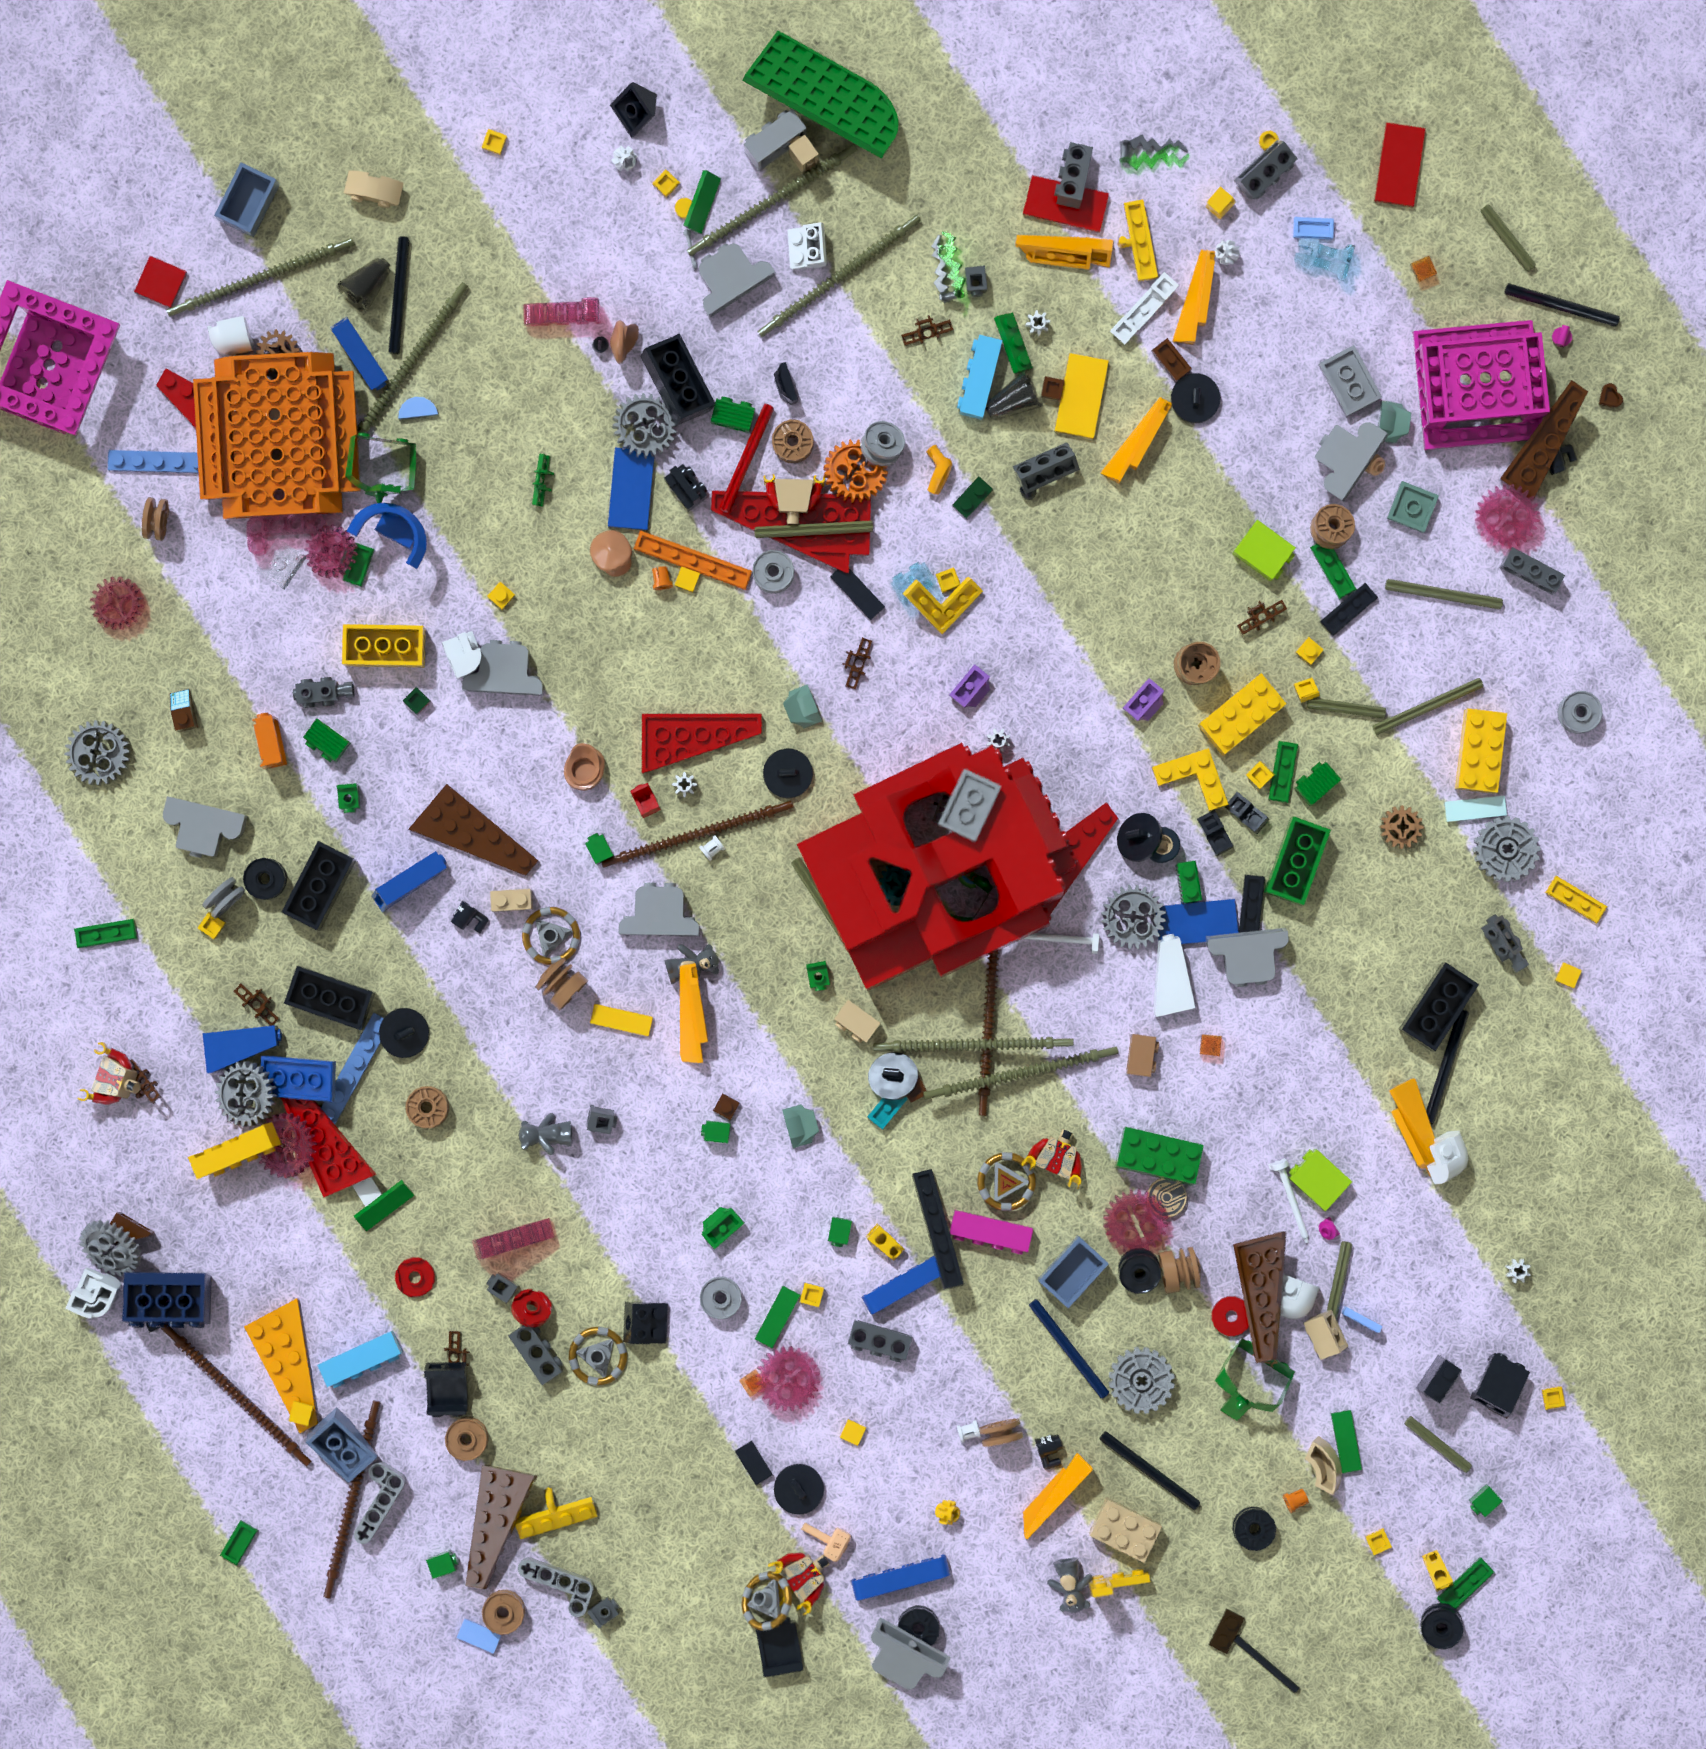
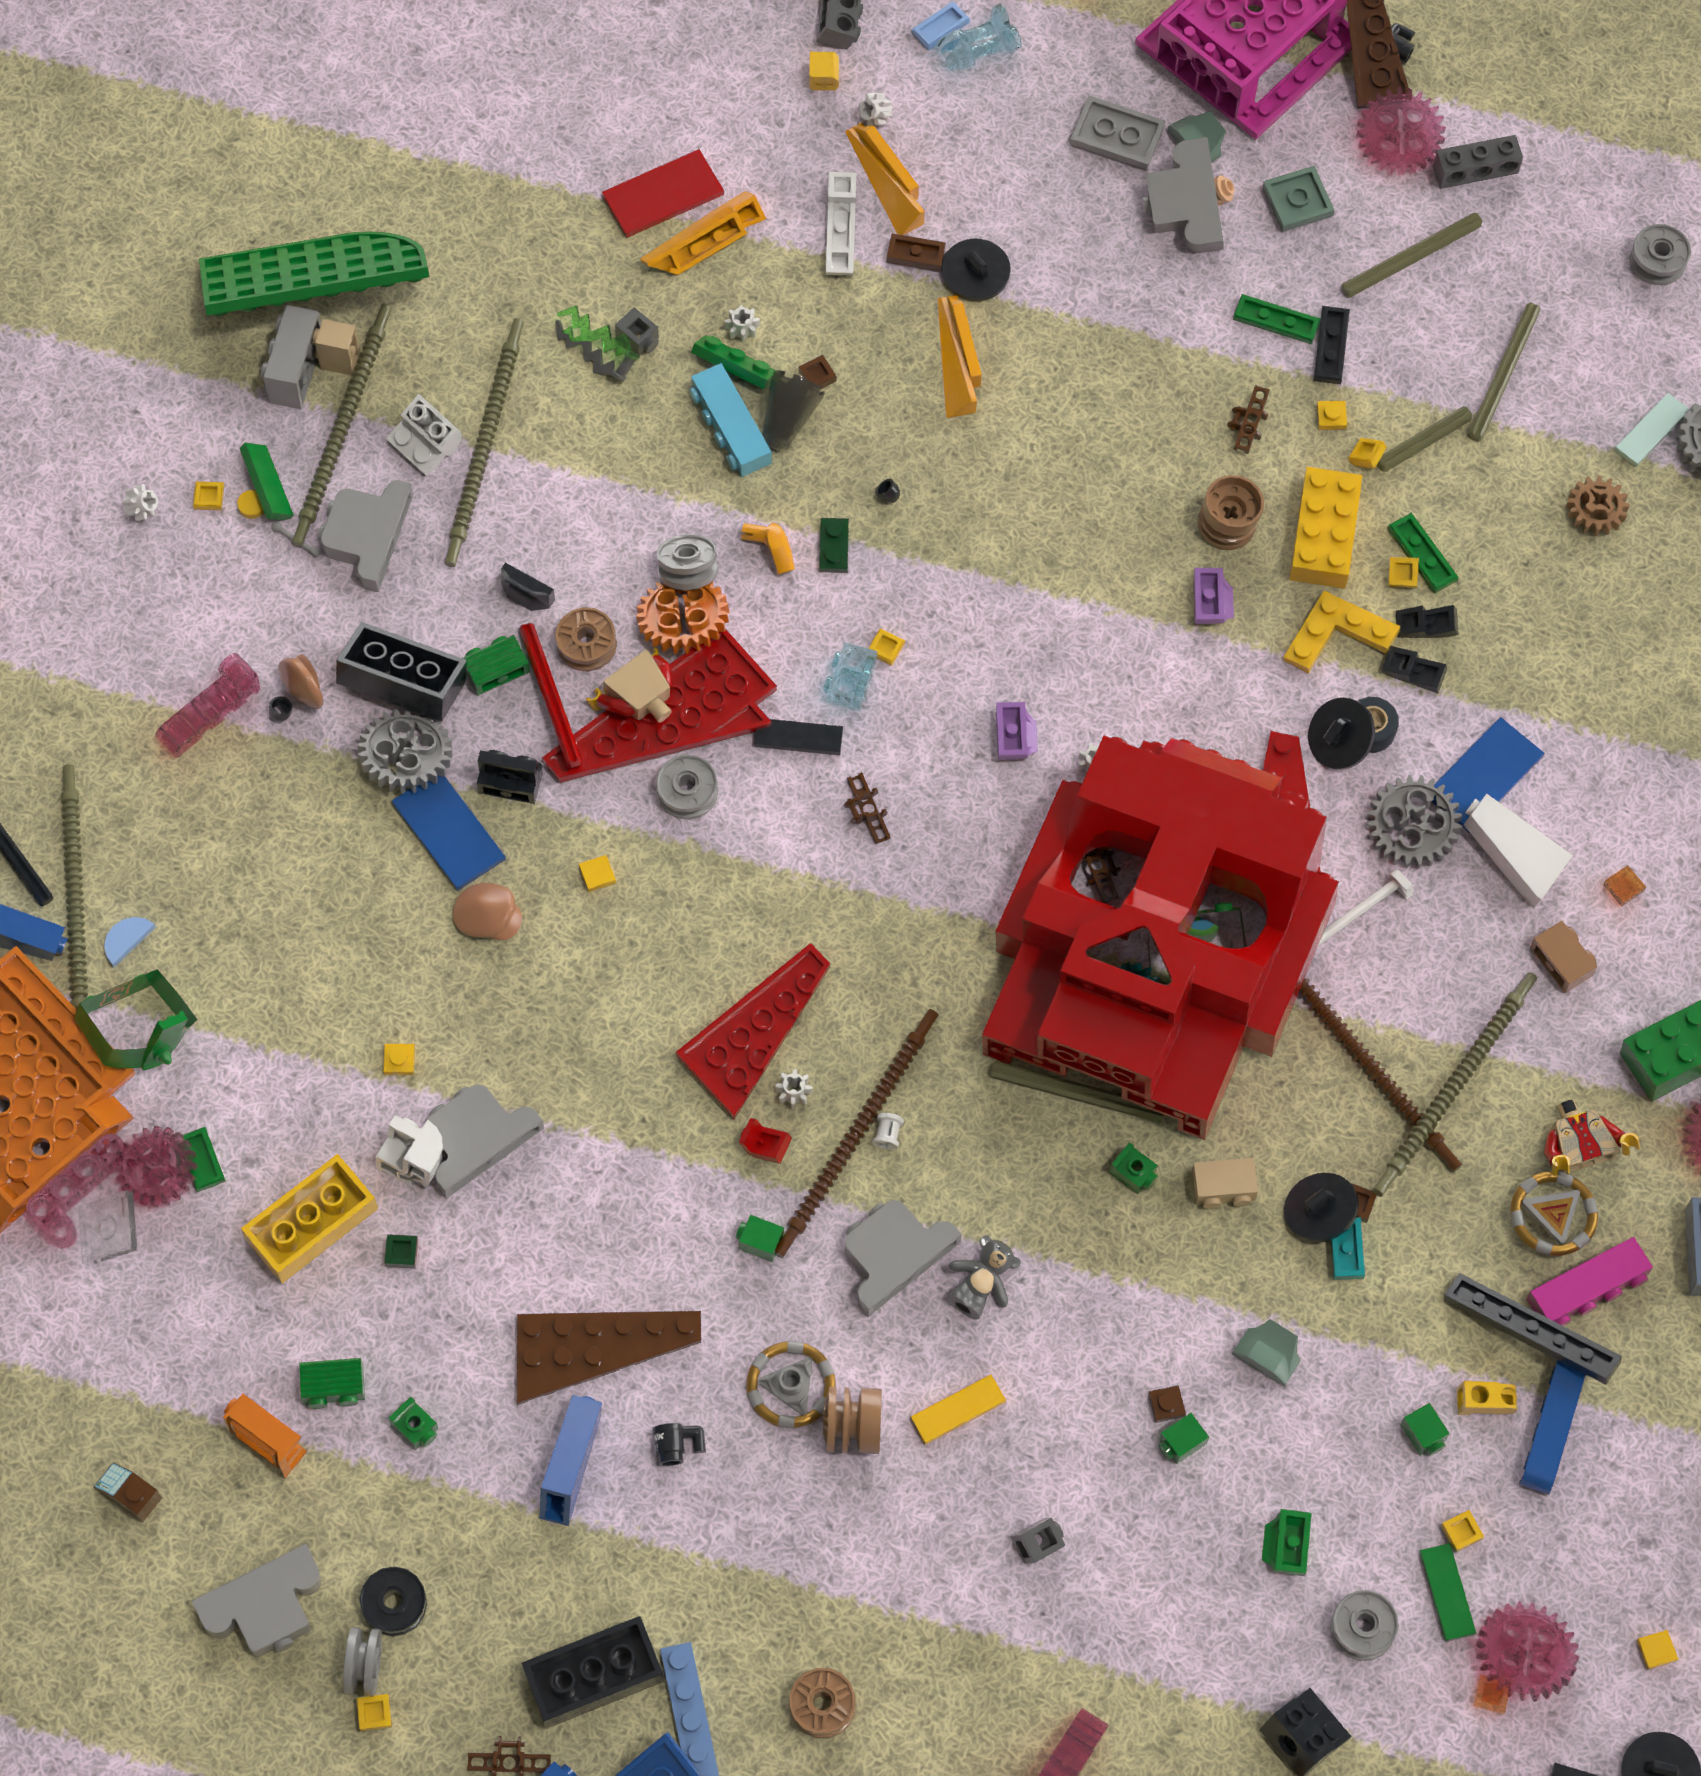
camera: 40 degrees left, 20 degrees down
(115, 756) = (86, 1613): light grey gear -> none
(316, 694) = (277, 1338): dark grey brick -> none
(318, 886) = (466, 1552): black brick -> none
(396, 524) = (213, 1073): blue piece -> none
(403, 1032) = (717, 1640): black shield -> none
(511, 900) = (710, 1378): tan brick -> none
(540, 486) = (342, 906): green piece -> none
(546, 1134) = (992, 1611): dark grey piece -> none
(584, 767) = (661, 1162): nougat piece -> none
(634, 107) = (106, 445): black slope -> none
(661, 578) = (571, 897): orange bush -> none
(692, 560) = (587, 846): orange tile -> none
(692, 1017) = (1036, 1330): light orange wedge -> none
(787, 773) = (898, 984): black shield -> none
(801, 707) = (851, 899): sand green slope -> none
(813, 529) = (692, 705): olive axle -> none
(873, 1331) = (1593, 1500): dark grey brick -> none
(897, 1046) = (1295, 1172): olive hose -> none
(919, 331) = (637, 411): reddish brown piece -> none
(943, 614) = (914, 681): yellow plate -> none
(969, 805) = (1140, 811): light grey plate -> none
(1046, 468) = (886, 450): dark grey brick -> none
(1078, 167) = (647, 155): dark grey brick -> none
(1081, 396) = (855, 358): yellow tile -> none
(1139, 240) = (773, 167): yellow plate -> none
(1160, 152) = (714, 73): piece -> none
(1188, 881) = (1436, 737): green brick -> none
(1248, 954) = (1573, 758): light grey brick -> none
(1251, 903) = (1523, 710): black tile -> none
(1264, 551) = (1191, 354): lime brick -> none
(1297, 861) = (1527, 622): green brick -> none
(1317, 783) = (1470, 532): green brick -> none
(1340, 518) = (1237, 276): medium nougat wheel -> none
(1481, 751) = (1602, 367): yellow brick -> none

